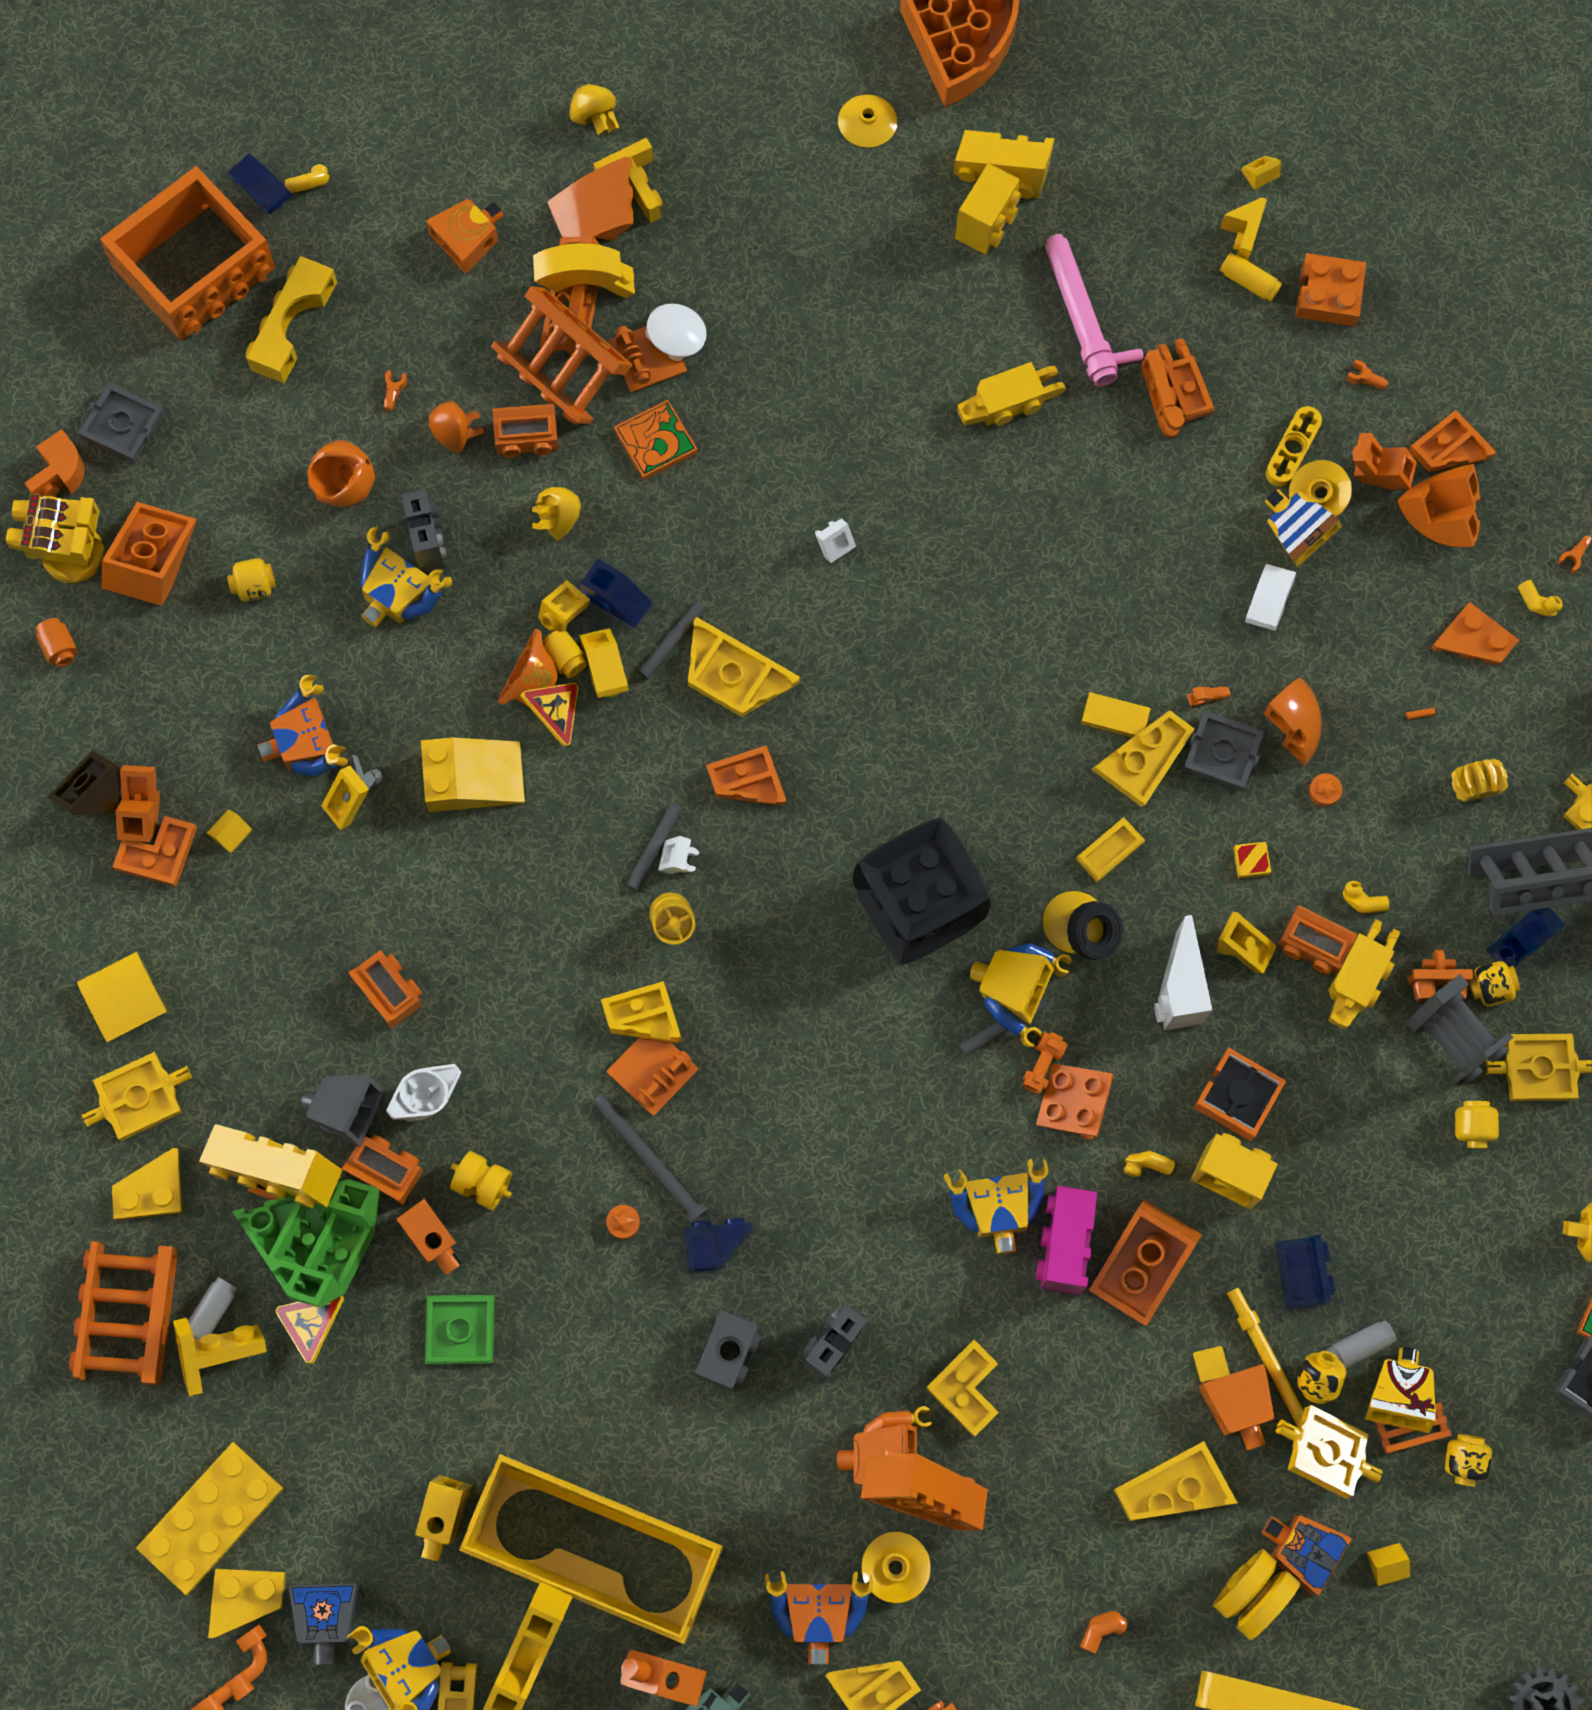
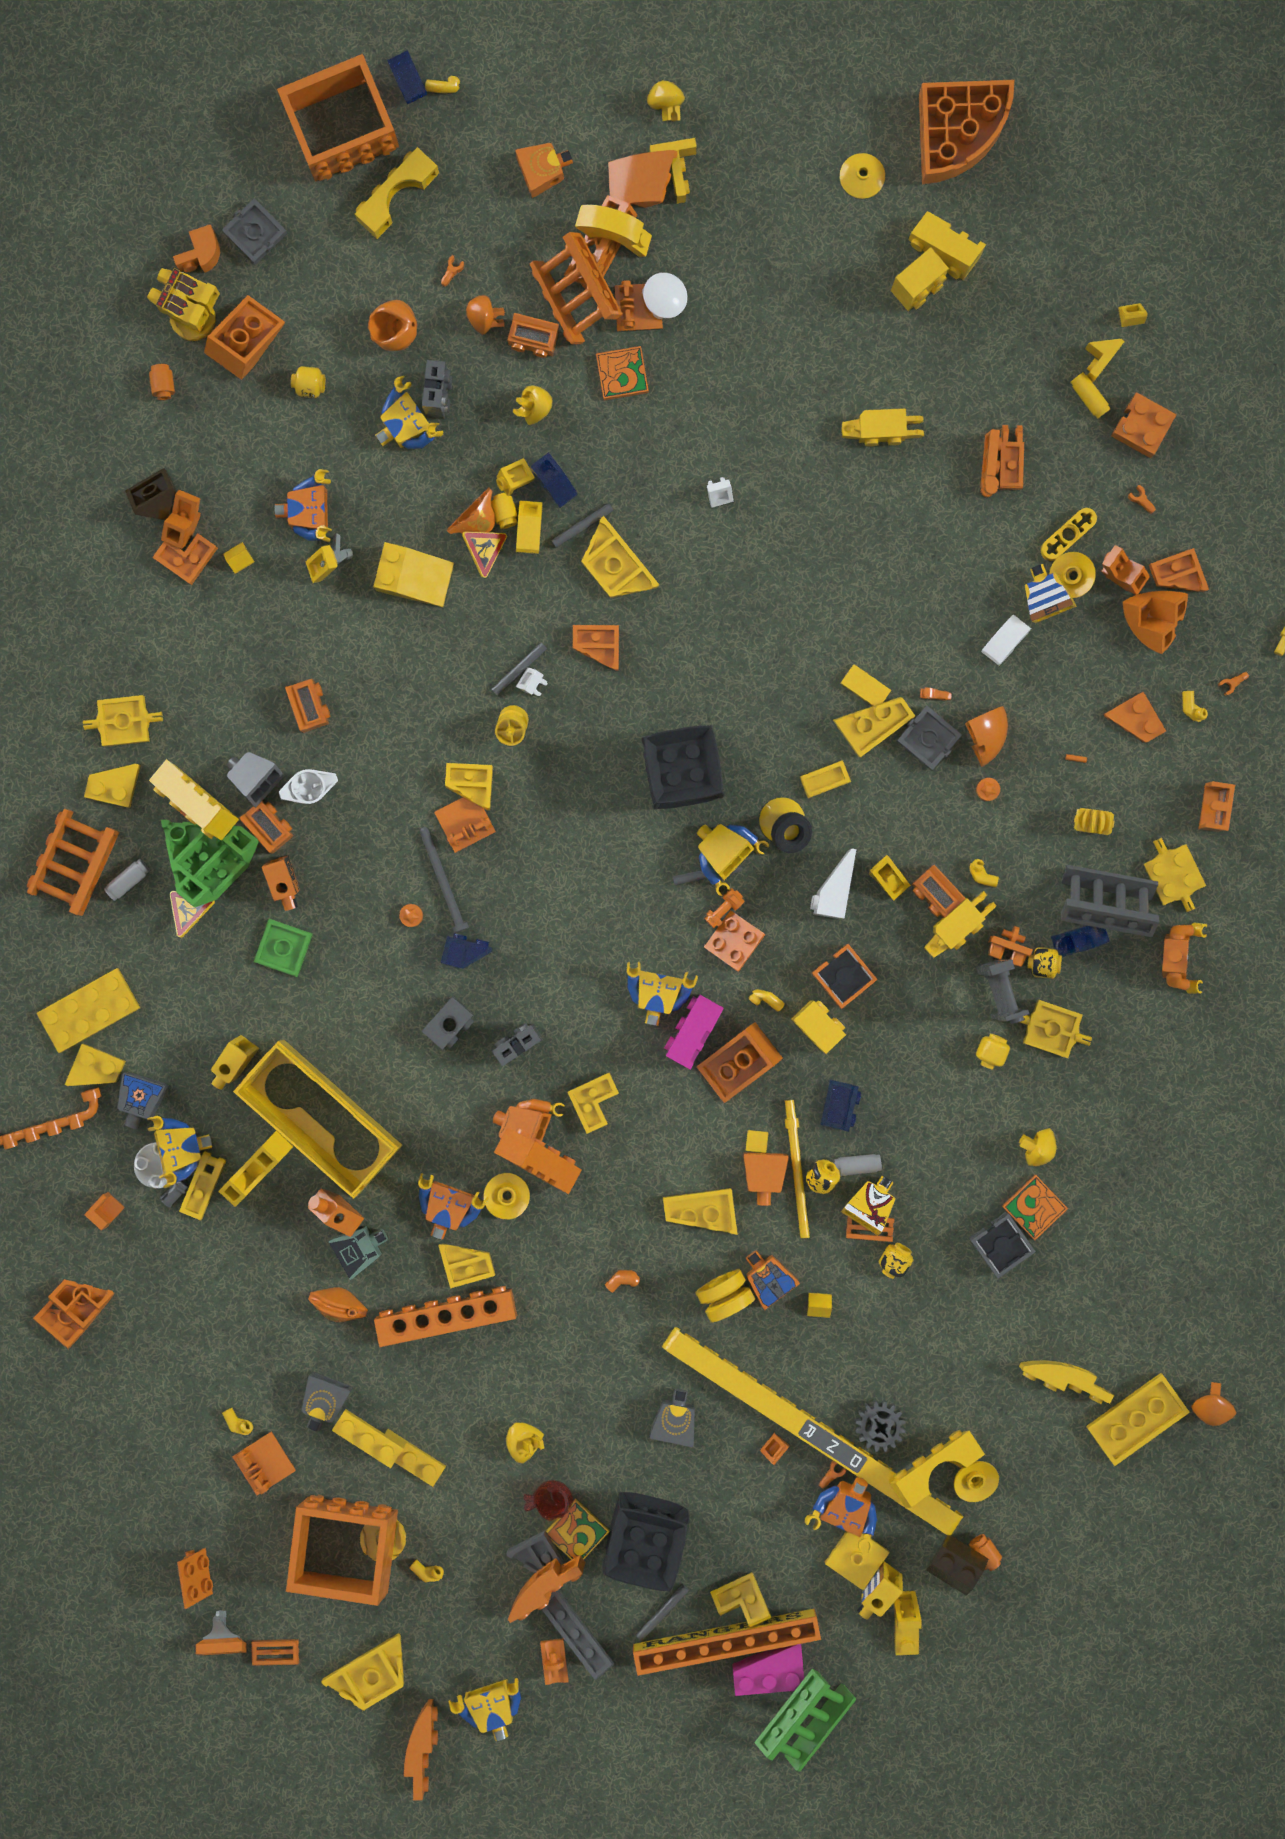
camera: 30 degrees right, 15 degrees up
(121, 996) = (132, 649): yellow slope -> none
(213, 1350) = (122, 907): yellow bracket -> none
(478, 1179) = (329, 858): yellow wheel -> none
(1095, 350) = (956, 413): bright pink cylinder -> none
(1252, 860) = (918, 820): yellow tile -> none
(1328, 1452) = (807, 1224): plate -> none

